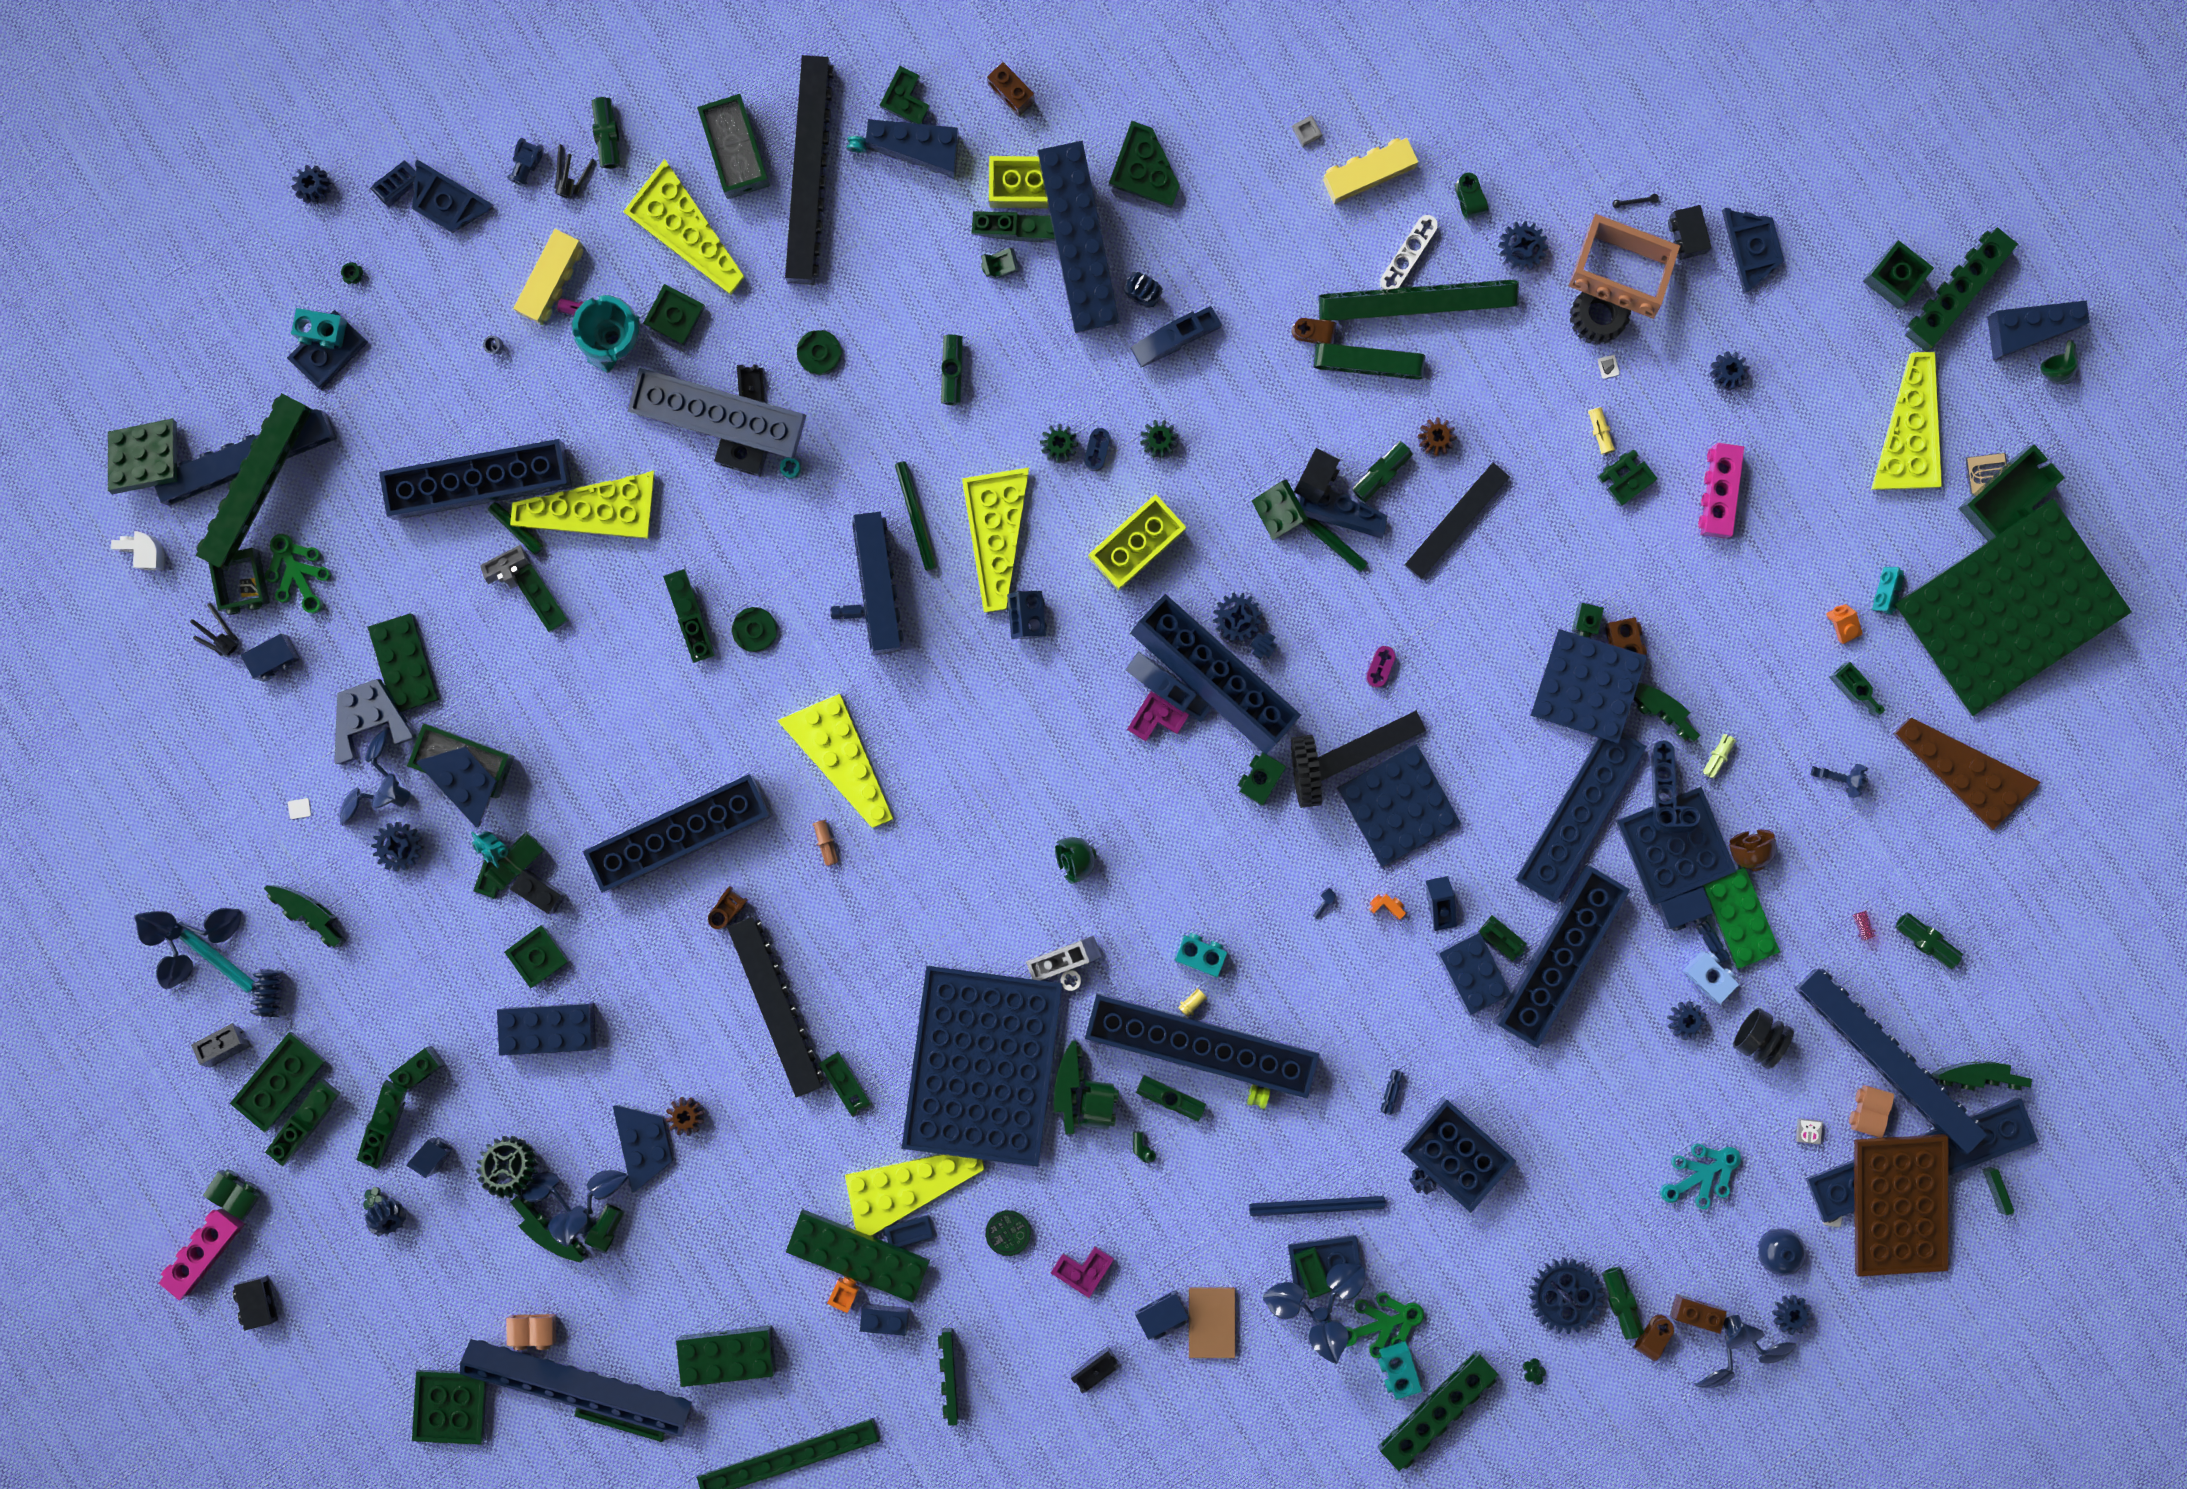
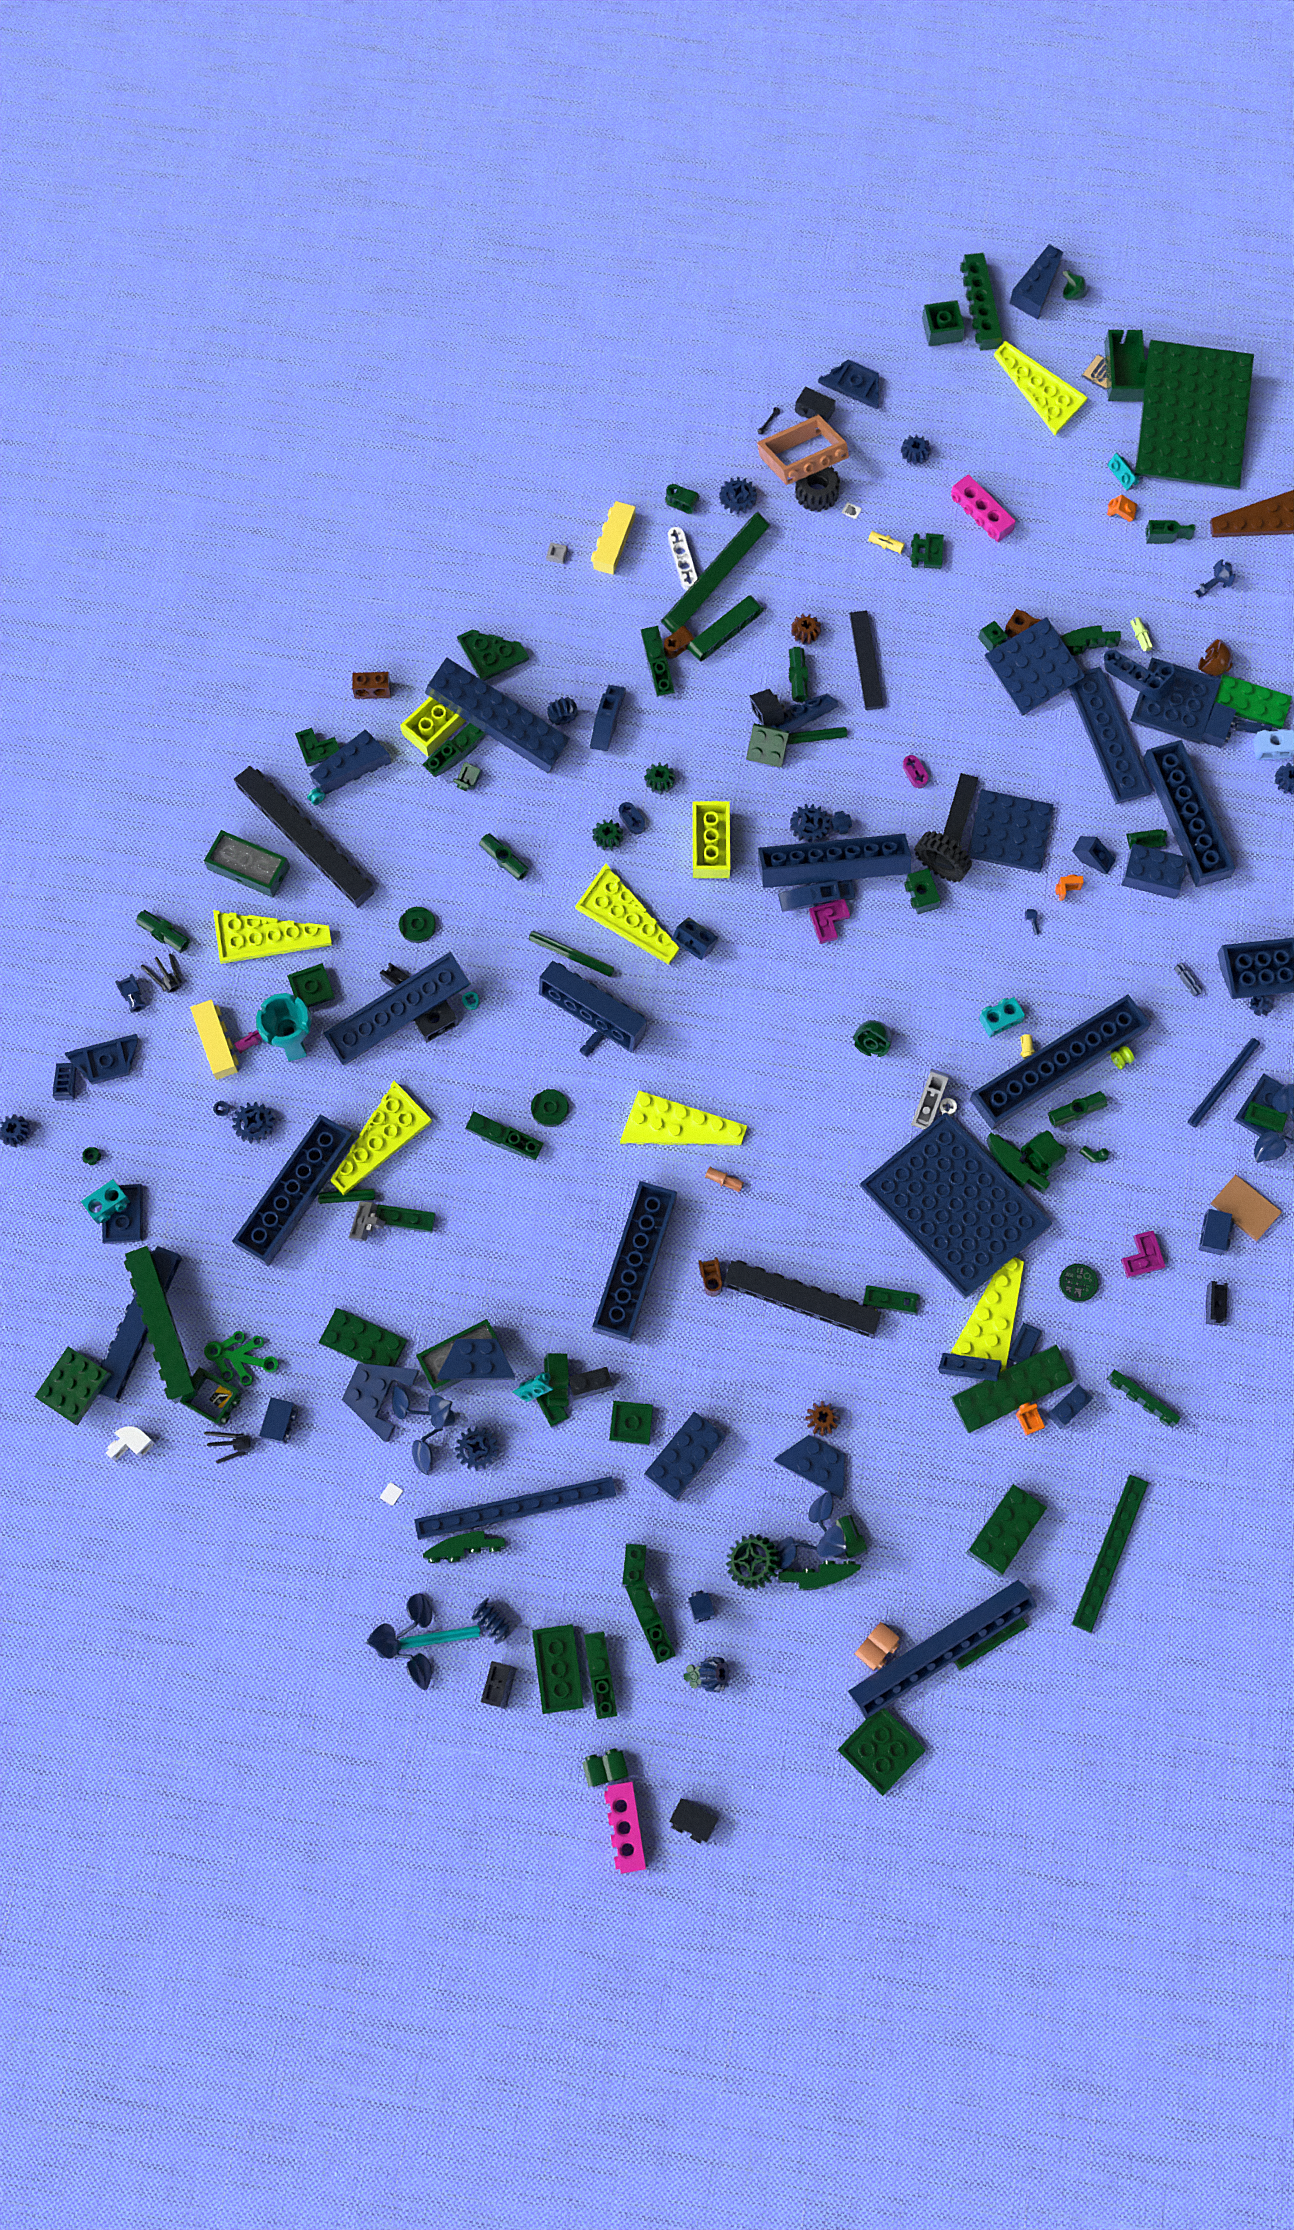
camera: 45 degrees left, 15 degrees down
(377, 925) = (515, 1508): none -> dark blue plate
(502, 376) = (255, 1115): none -> dark blue gear
(842, 1205) = (970, 1367): none -> dark blue plate
(1275, 330) = (657, 661): none -> dark green slope

